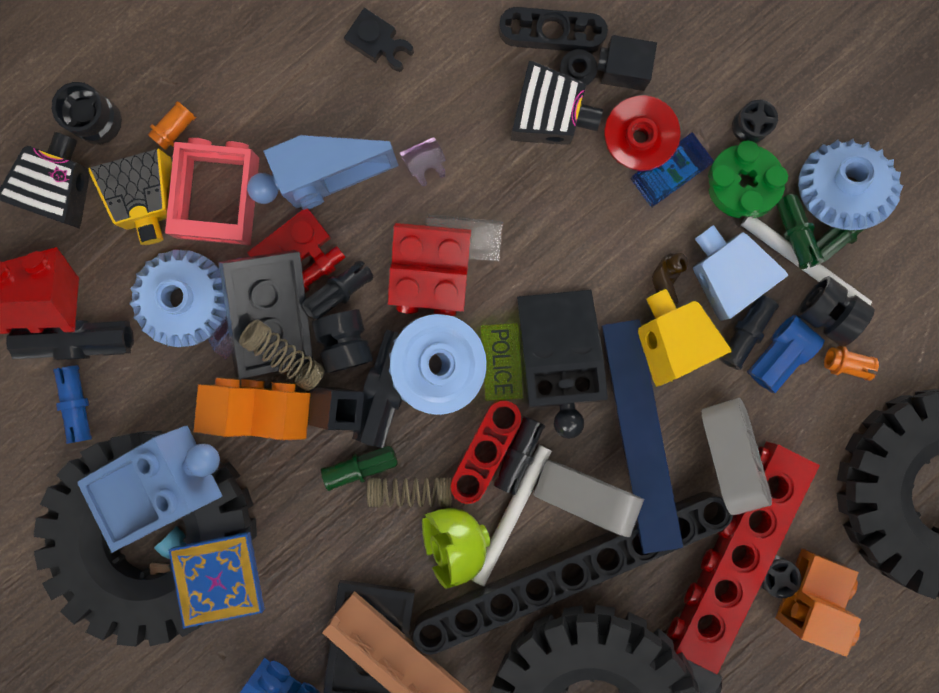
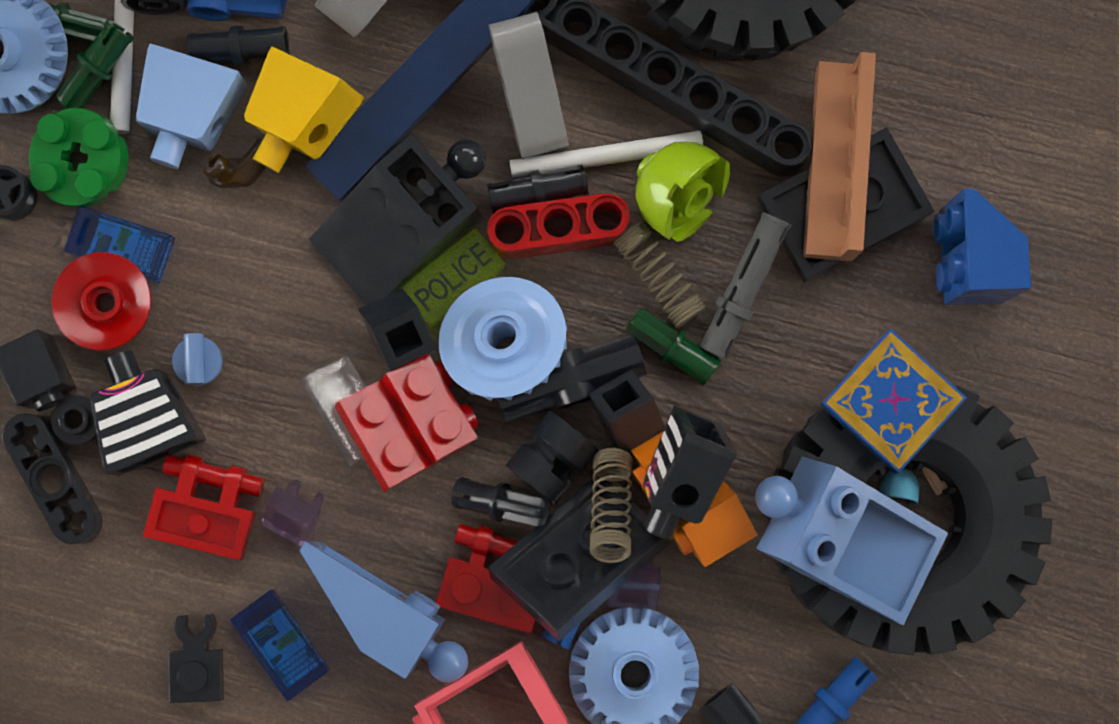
camera: 130 degrees left, 5 degrees down
(260, 416) = (685, 471): none -> black torso
(351, 98) = (280, 645): none -> clear blue tile
(363, 541) = (744, 286): none -> dark grey pin
(459, 100) = (199, 522): none -> red plate
(491, 302) = (397, 329): none -> black brick
(562, 167) = (197, 360): none -> medium blue plate

